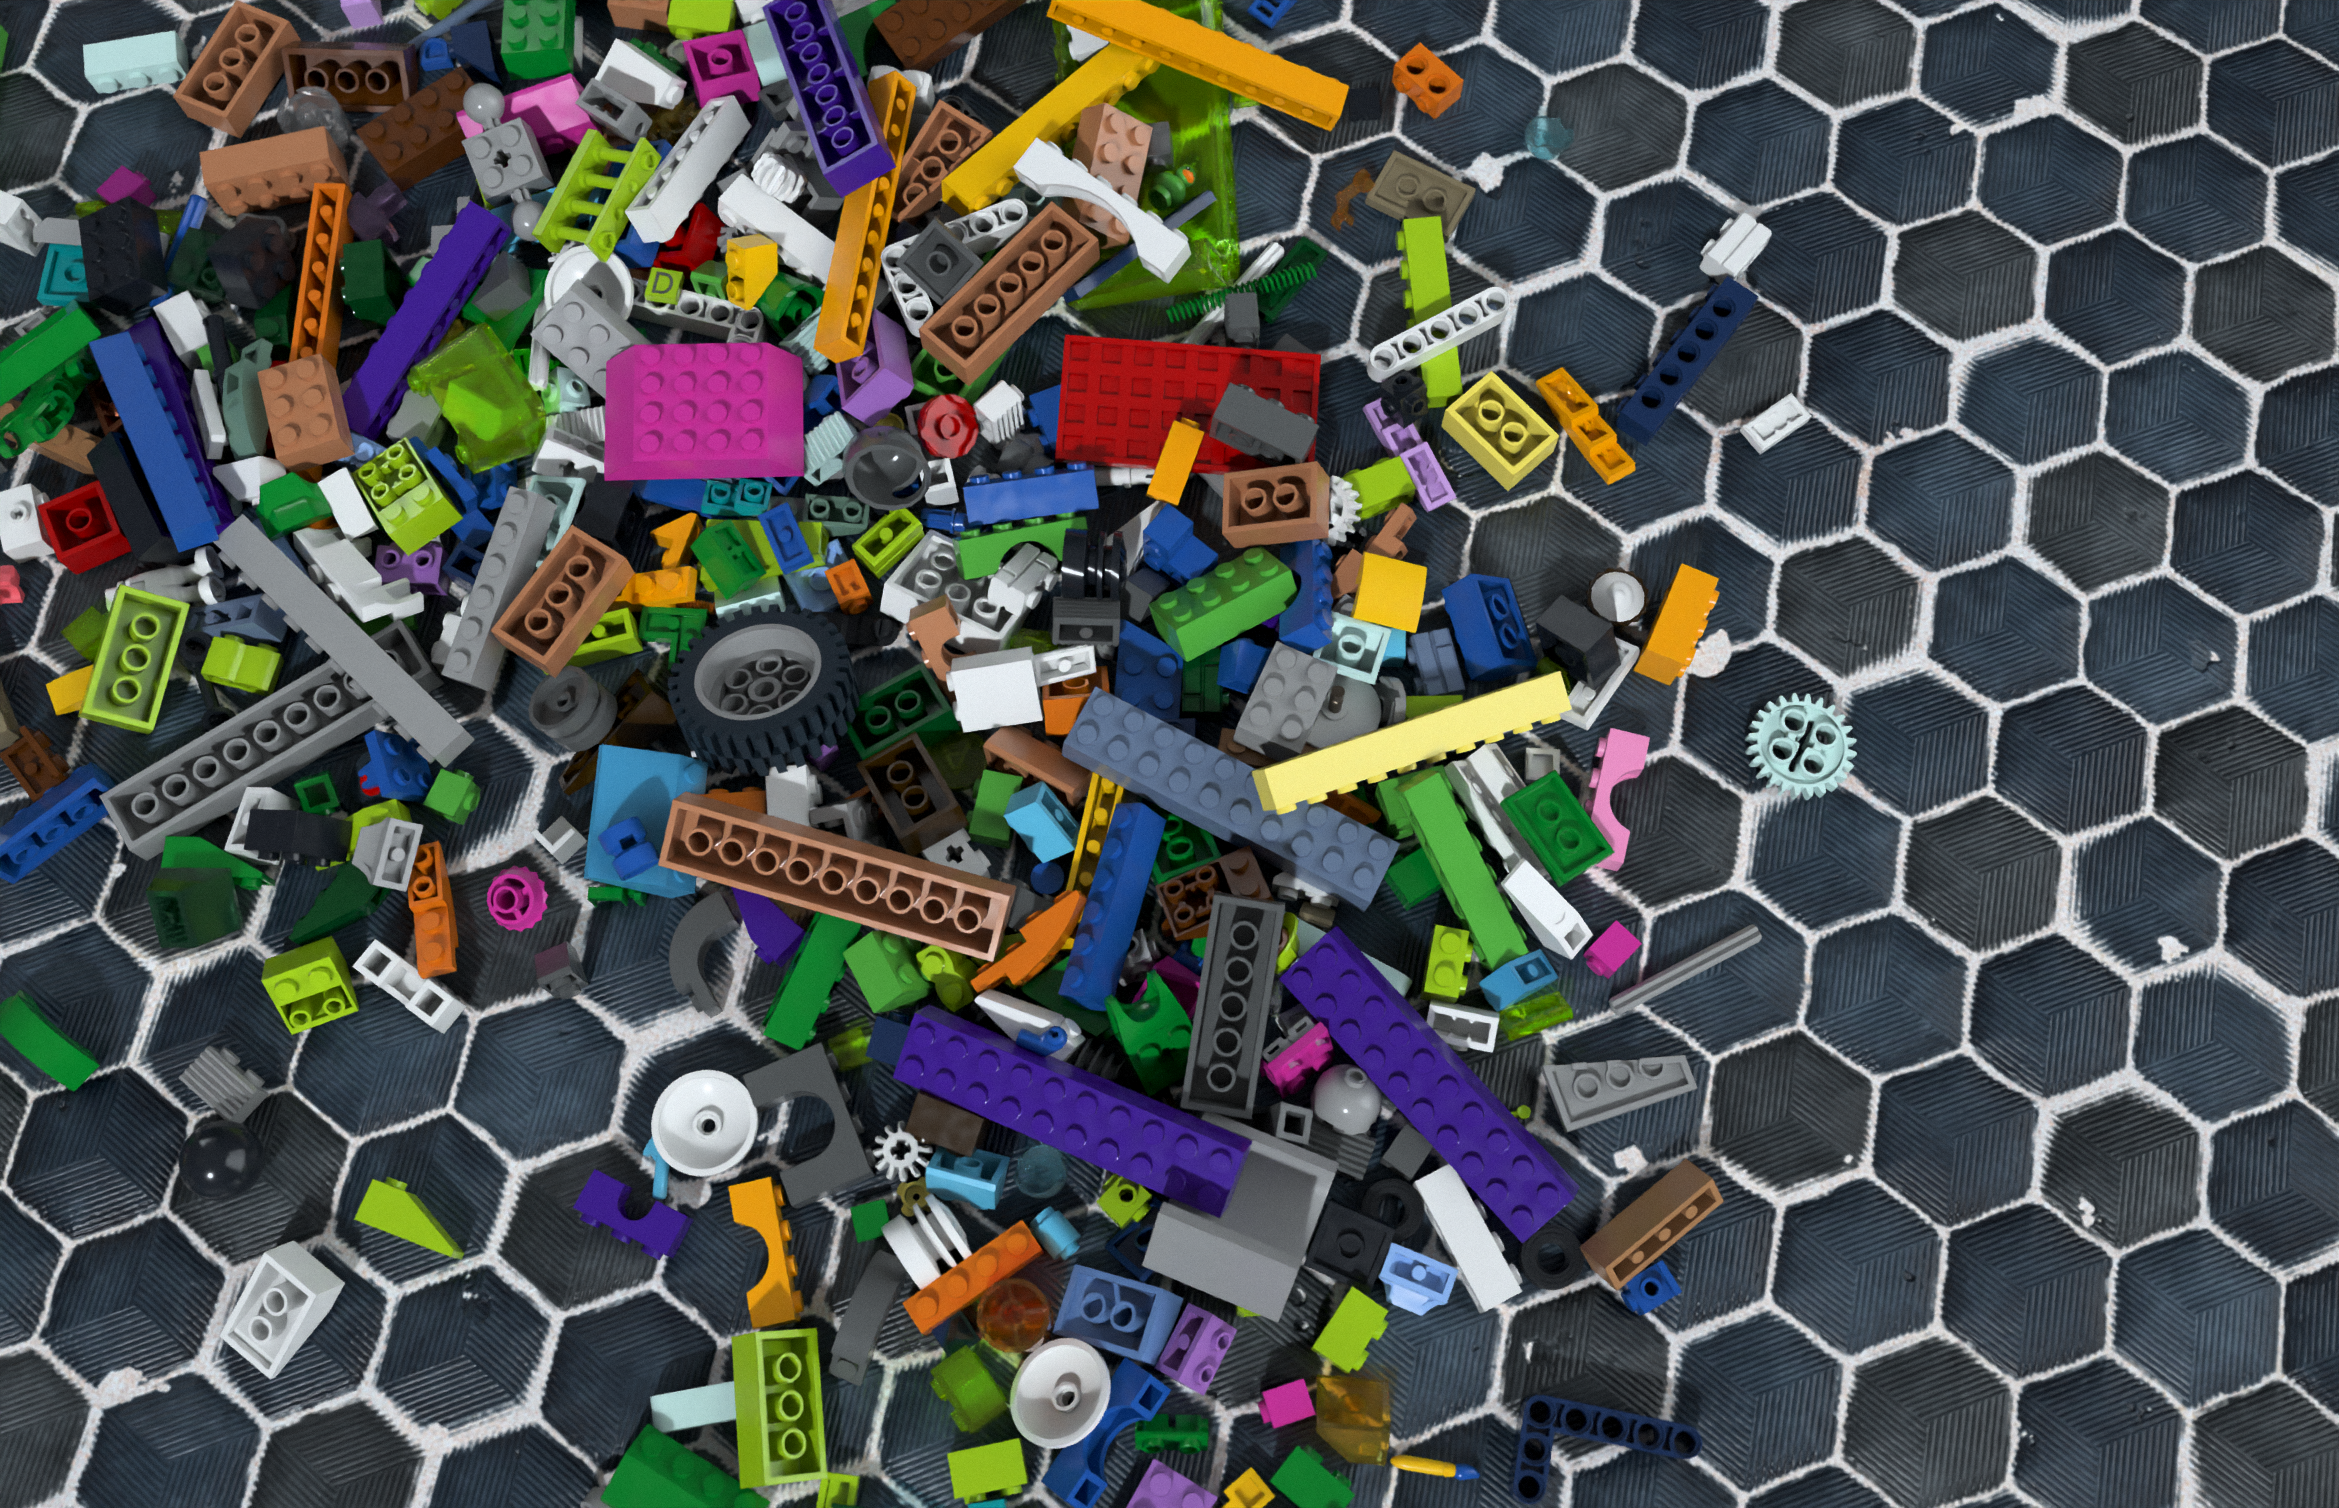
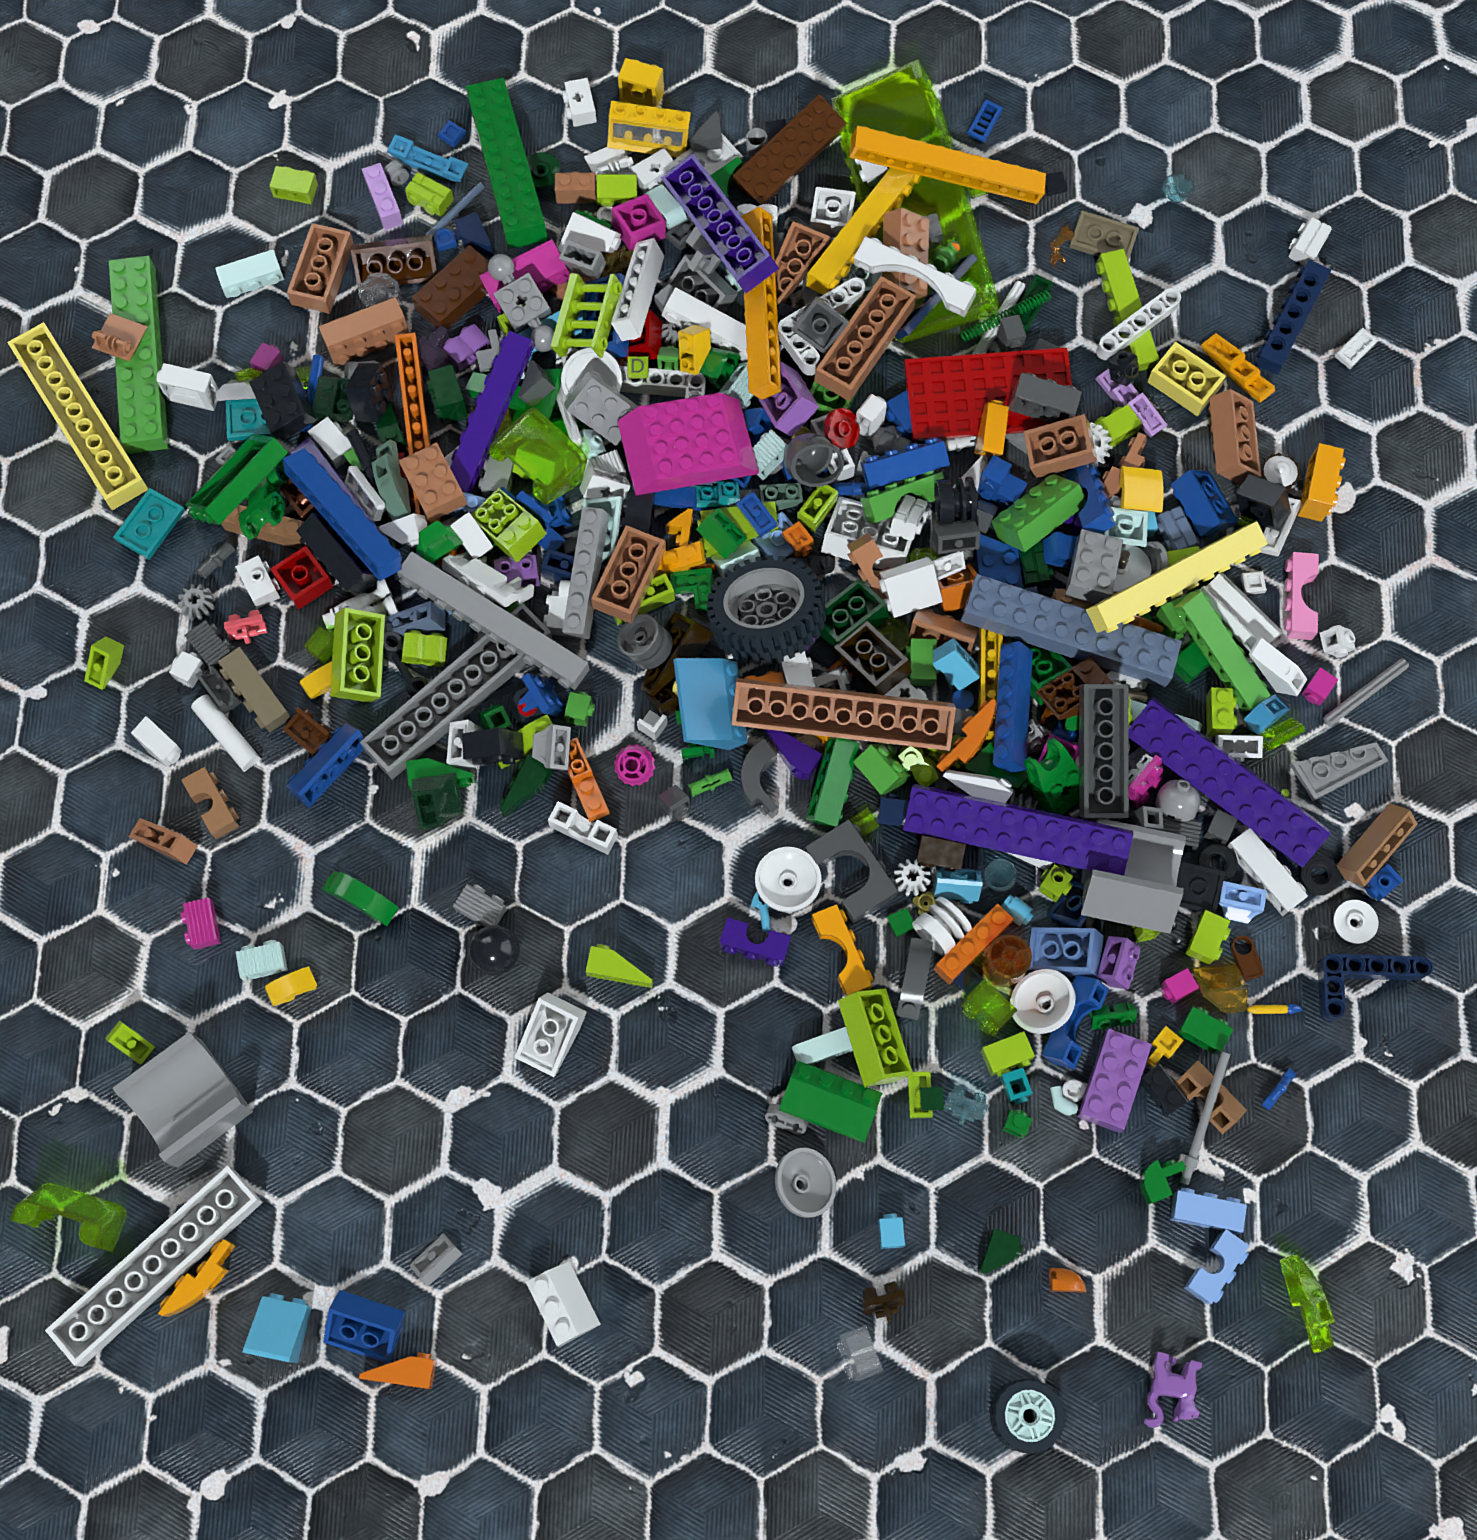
camera: 10 degrees left, 0 degrees up
(310, 985) = (518, 838): lime slope -> none
(416, 216) = (464, 347): none -> medium lavender brick
(579, 807) = (664, 701): none -> dark brown slope
(626, 945) = (709, 782): none -> bright green pin
(635, 858) = (716, 723): blue wheel -> none
(779, 177) = (698, 286): white gear -> none
(1010, 91) = (831, 210): none -> white brick
(1045, 1043) = (994, 793): blue arm -> none
(1409, 1384) = (1248, 964): none -> reddish brown piece
(1431, 76) = (1094, 159): orange brick -> none
(1554, 531) = (1234, 436): none -> nougat brick
(1556, 828) = (1273, 617): green tile -> none
(1611, 1341) = (1363, 915): none -> white dish
(1653, 881) = (1337, 641): none -> white brick
(1772, 733) = (1391, 540): light aqua gear -> none

